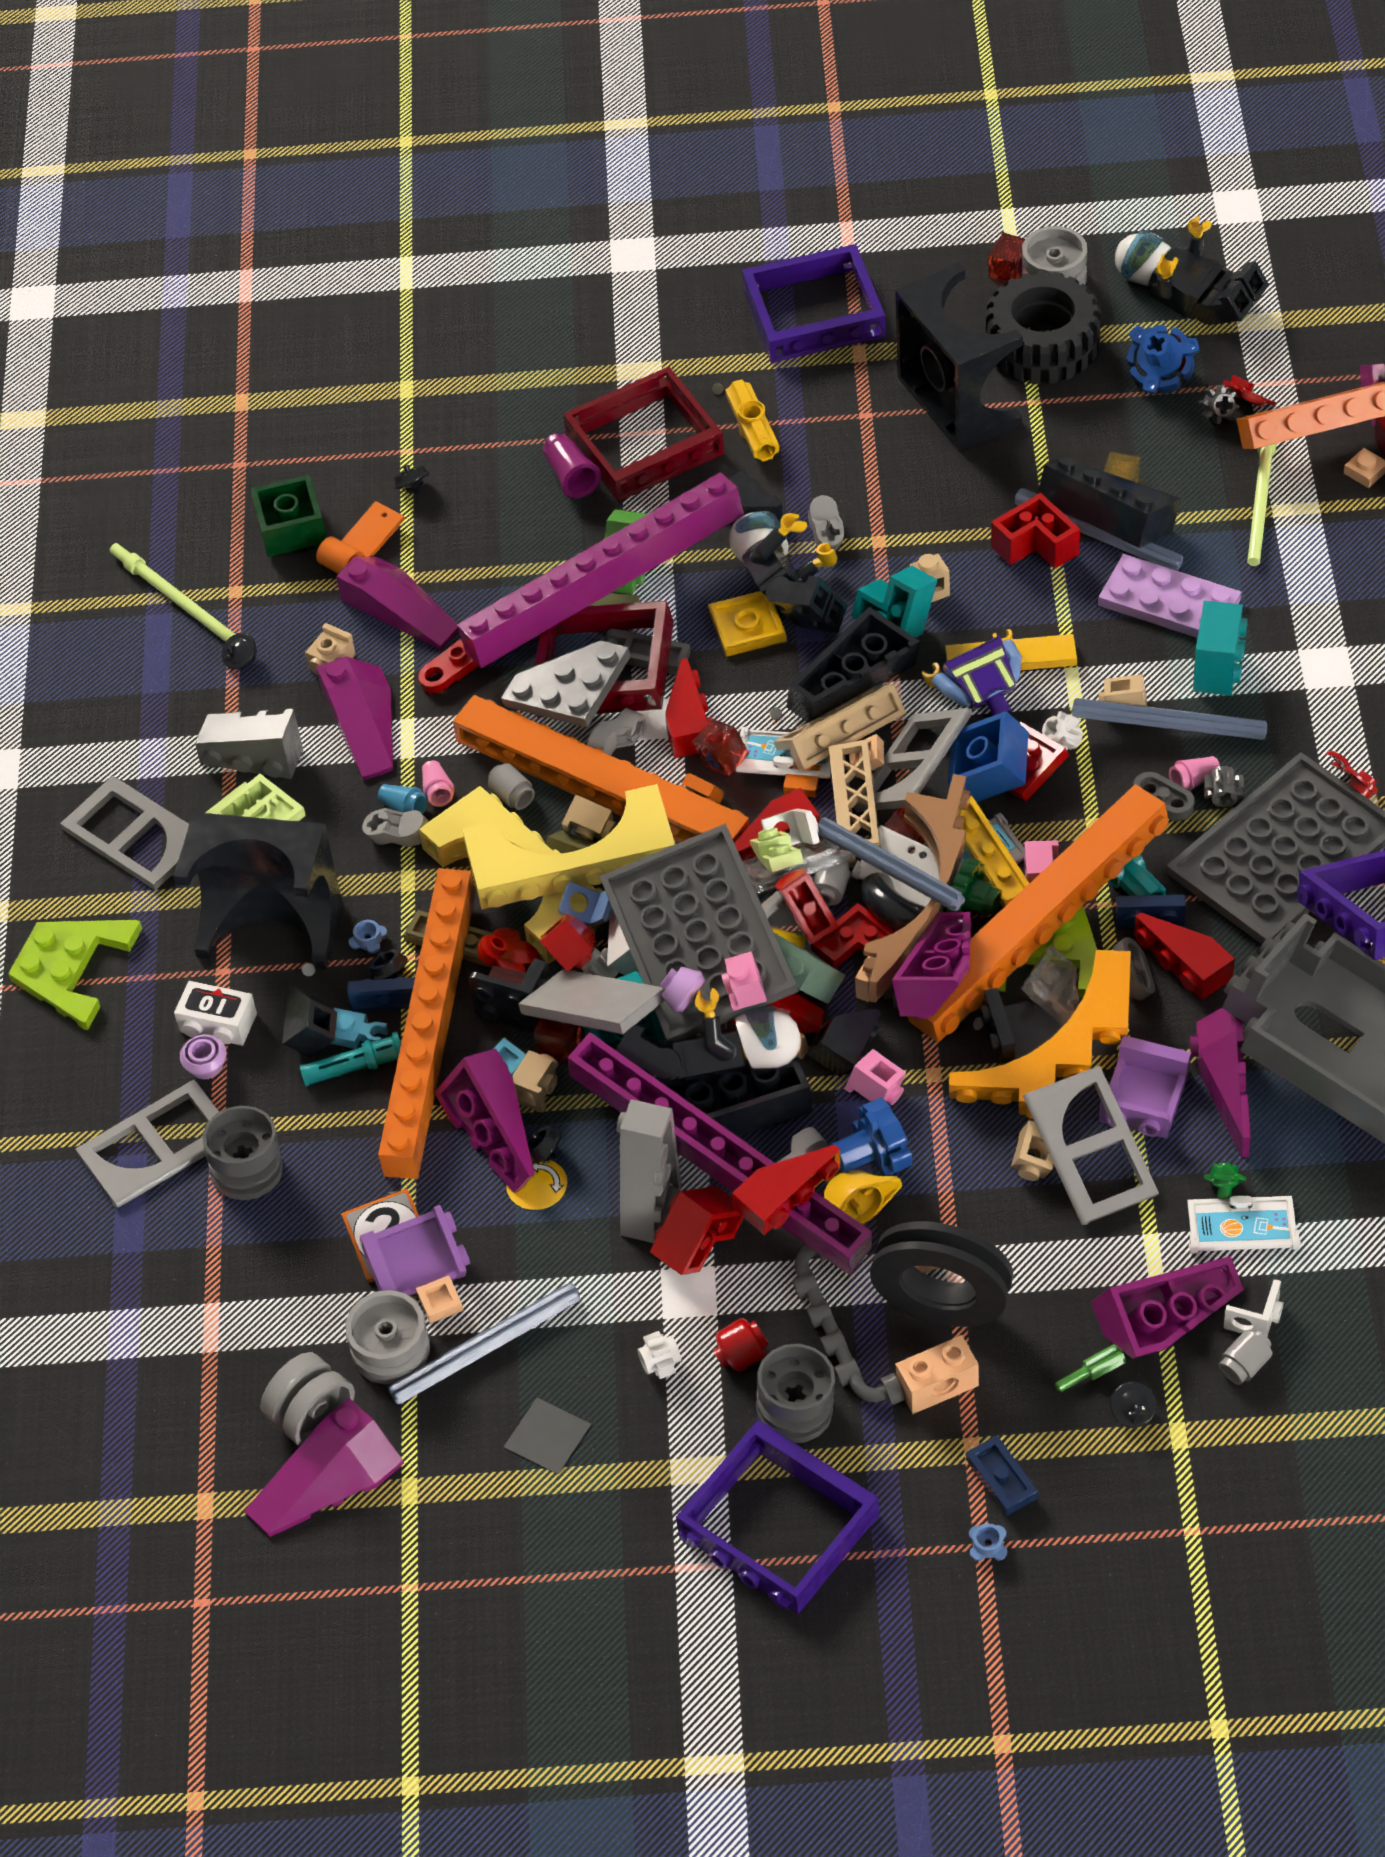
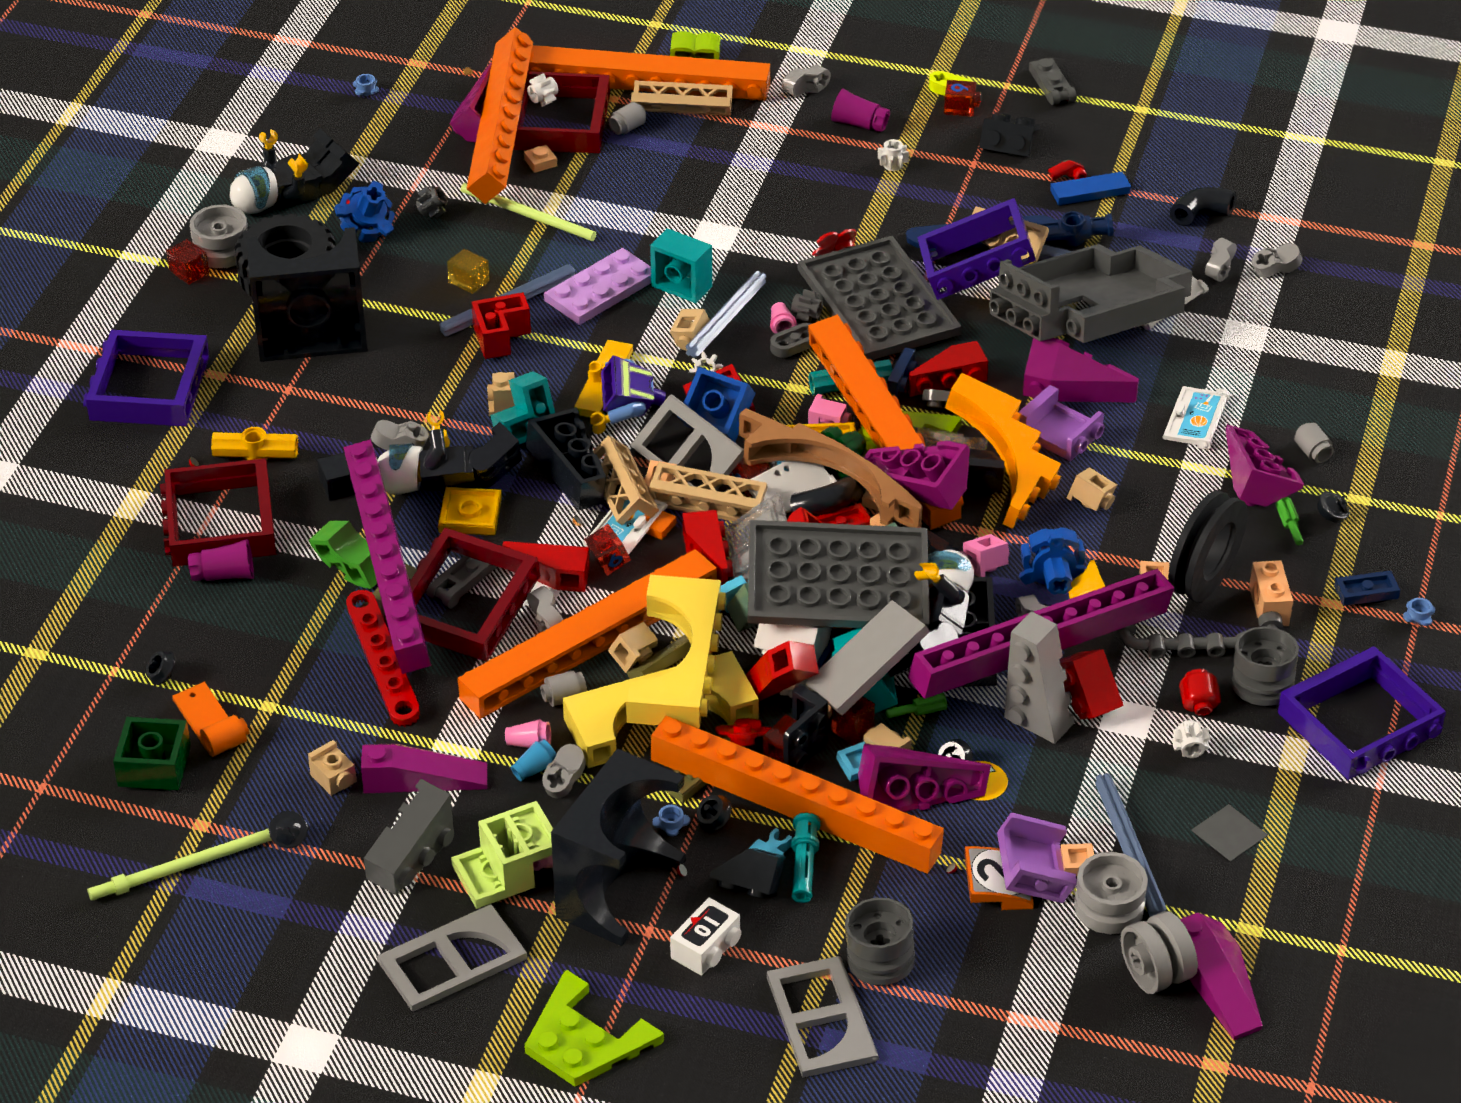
camera: 75 degrees left, 10 degrees down
(203, 1056) = (753, 952): lavender cone -> none
(380, 994) = (746, 816): dark blue plate -> none
(394, 599) = (293, 717): magenta wedge -> none
(569, 685) = (494, 610): plate -> none
(597, 909) = (745, 650): medium blue bracket -> none
(681, 987) = (903, 586): lavender cone -> none
(703, 787) = (638, 572): orange tile -> none
(743, 981) = (916, 547): bright pink brick -> none
(775, 850) = (737, 535): yellowish green slope -> none
(778, 1188) = (1112, 595): red slope -> none
(801, 824) = (729, 517): white bracket -> none
(891, 864) = (805, 472): sand blue axle -> none
(1048, 1110) = (1072, 459): light grey window -> none
(1109, 501) = (497, 276): black wedge -> none
(1224, 1177) = (1158, 408): green plant -> none
(1244, 391) = (420, 184): red plate -> none
(1259, 1322) = (1282, 421): white bracket -> none

